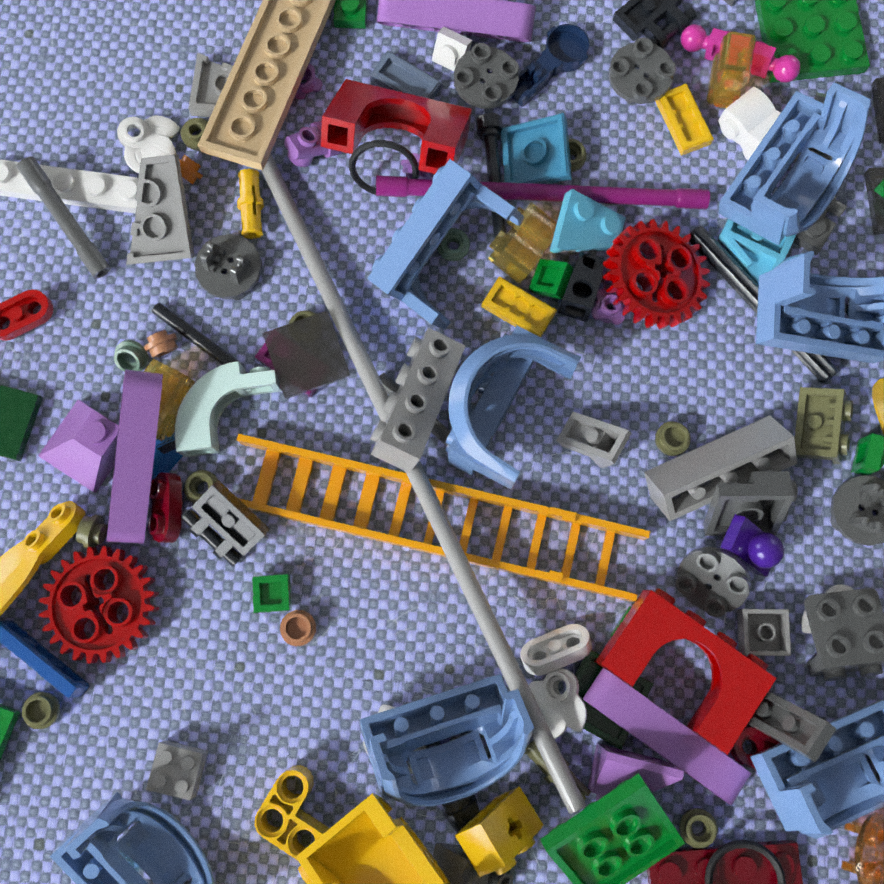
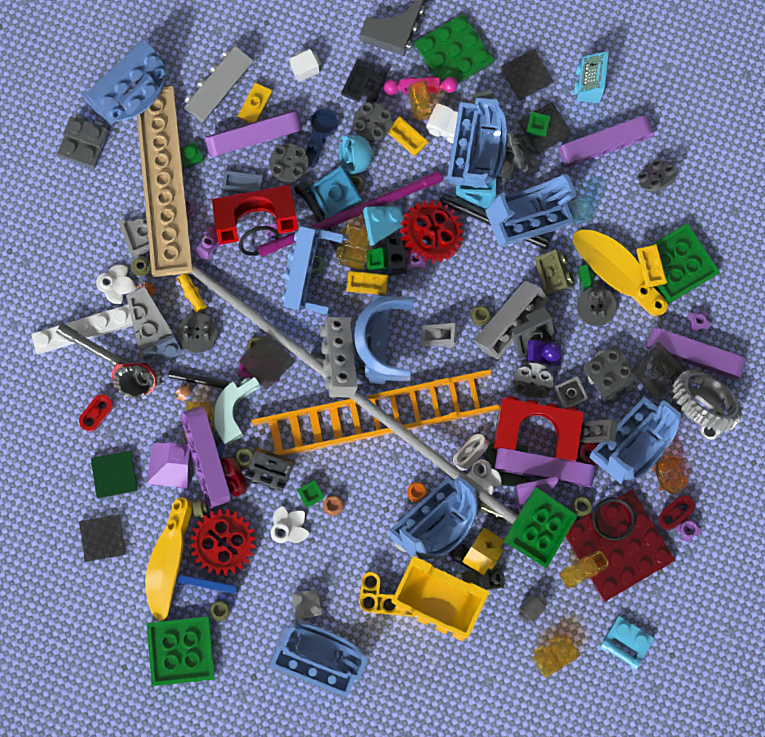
camera: 30 degrees left, 0 degrees up
(97, 290) = (135, 379): none -> dark grey hair
(130, 356) = (170, 410): sand green plate -> none
(168, 267) = (165, 349): none -> sand blue plate
(219, 628) = (291, 524): none -> white plate
(440, 671) = (416, 492): none -> orange plate
(450, 48) = (260, 154): white plate -> none
(594, 107) = (355, 153): none -> medium azure cylinder
(854, 221) = (523, 152): none -> dark grey plate

